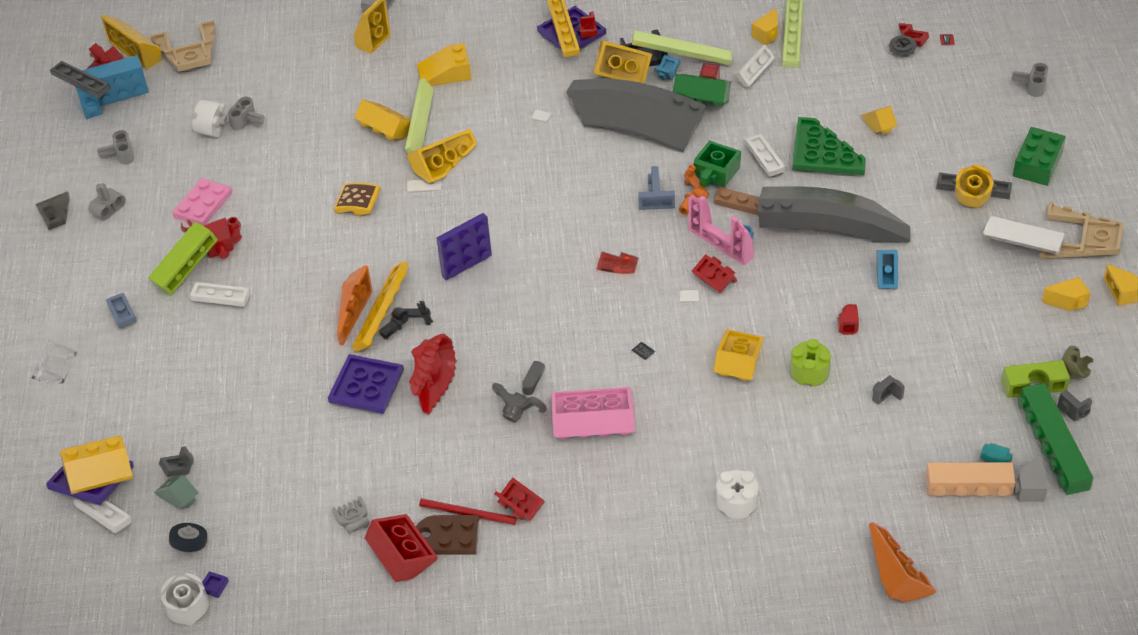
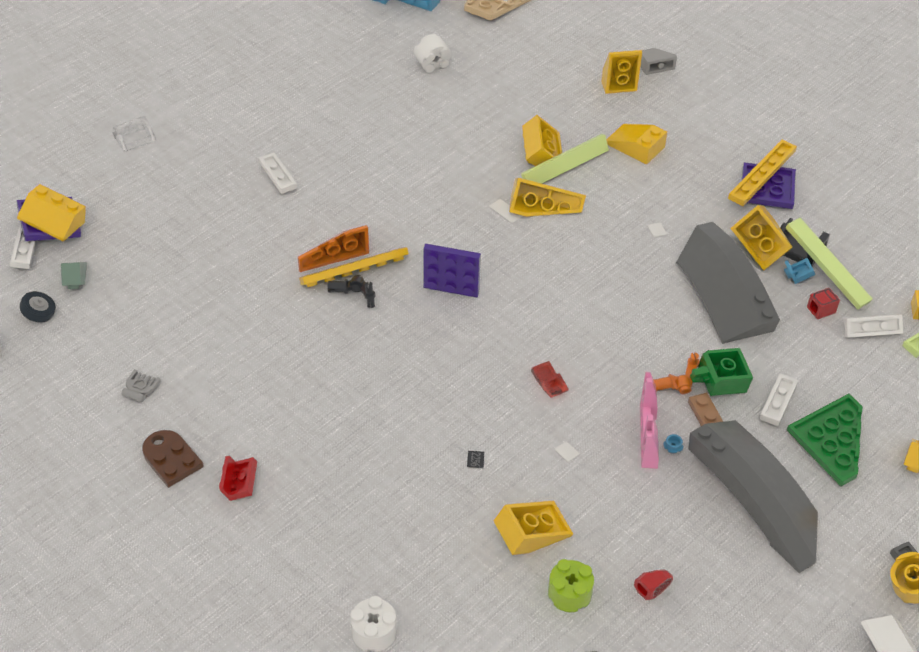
camera: 45 degrees right, 0 degrees up
(54, 210) = (269, 41): clear smoke wing -> none
(106, 202) = (301, 59): light grey beam -> none
(121, 147) = (360, 32): light grey beam -> none
(121, 310) = (212, 134): sand blue plate -> none
(177, 464) = (98, 256): dark grey bracket -> none
(183, 258) = (284, 129): lime brick -> none
(202, 202) = (356, 106): bright pink plate -> none
(215, 584) = (11, 351): dark purple tile -> none
(225, 231) = (324, 133): red torso -> none
(242, 113) = (460, 67): light grey beam -> none
(357, 198) = (447, 182): slope -> none
(366, 384) = (270, 309): dark purple plate -> none
(400, 546) = (128, 433): red slope -> none
(432, 370) = (317, 336): red piece -> none
(467, 511) = (202, 453): red axle -> none
(516, 403) = (331, 410): dark grey piece -> none
(533, 377) = (373, 404): dark grey bar -> none
(587, 26) = (780, 191): red slope -> none
(592, 412) = (372, 466): bright pink slope -> none
(655, 198) = (648, 357): sand blue bracket -> none
(702, 88) = (797, 306): green brick -> none
(714, 273) = (605, 451): red bracket -> none
(887, 268) = (744, 573): dark azure slope -> none

